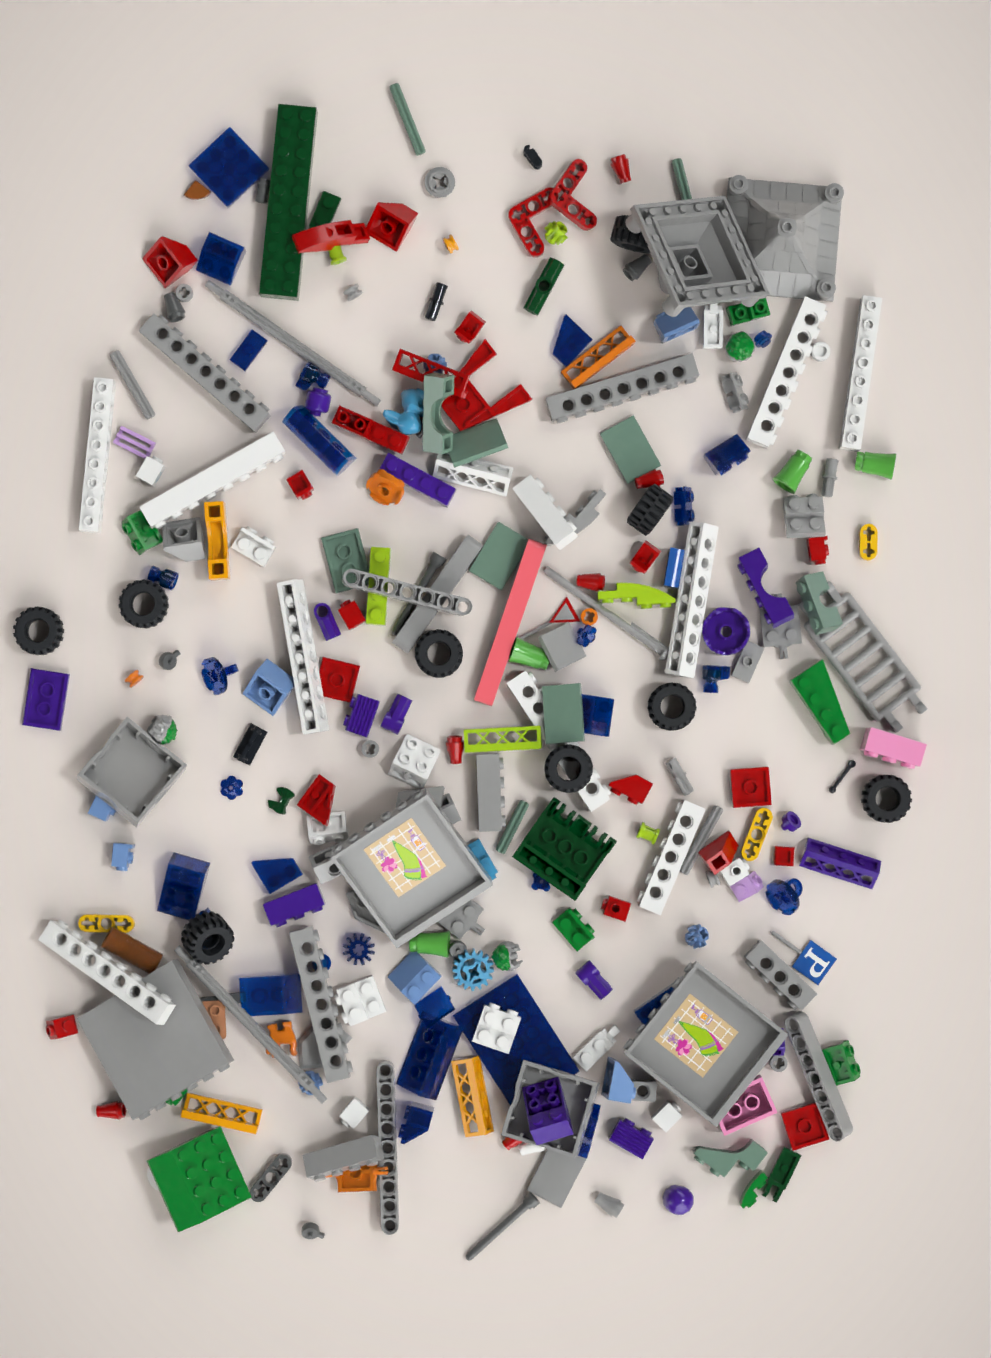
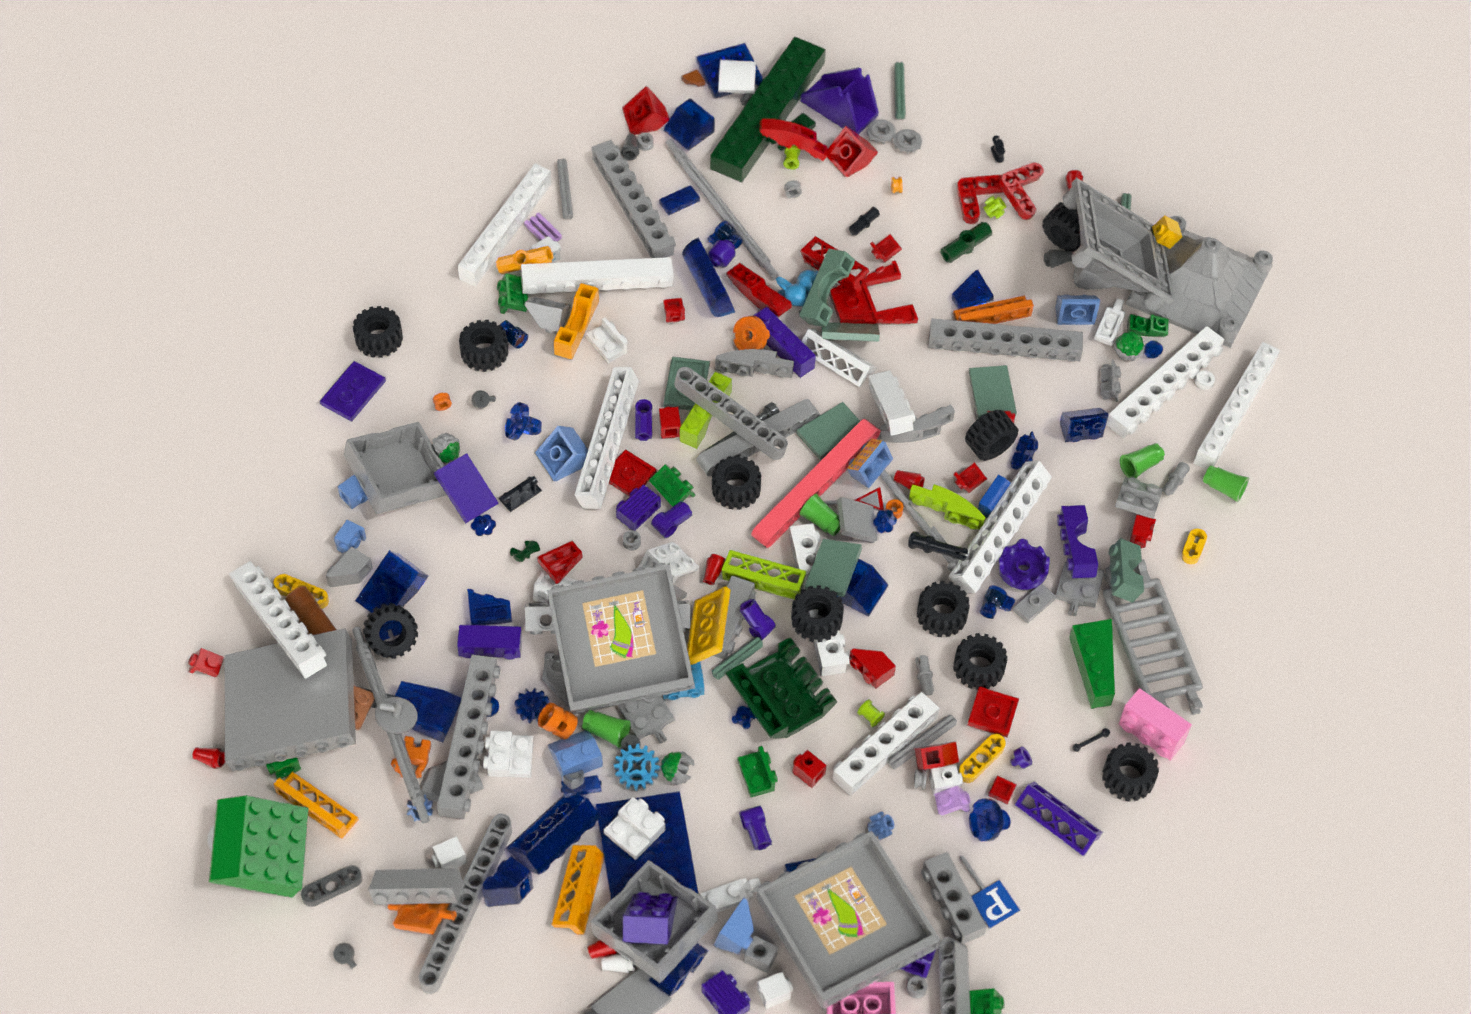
camera: 20 degrees right, 30 degrees down
(139, 884) = (350, 569): none -> light grey slope
(145, 490) = (513, 262): none -> light orange piece
(202, 766) = (466, 488): none -> dark purple tile
(241, 178) = (737, 76): none -> white slope
(253, 1018) = (396, 715): none -> light grey shield
(356, 162) = (844, 99): none -> dark purple ladder
(382, 678) = (671, 486): none -> green bracket
(388, 959) = (558, 721): none -> orange wheel
(392, 516) = (750, 360): none -> light grey slope
(406, 172) = (881, 125): none -> light grey gear
(426, 1004) = (574, 779): none -> light grey tile
(477, 815) = (708, 625): none -> yellow tile
(515, 787) = (759, 623): none -> dark purple piece
(550, 584) = (870, 462): none -> medium blue slope
(635, 646) = (930, 544): none -> black pin
(734, 204) = (1167, 232): none -> yellow brick
(735, 757) = (980, 647): none -> black tyre

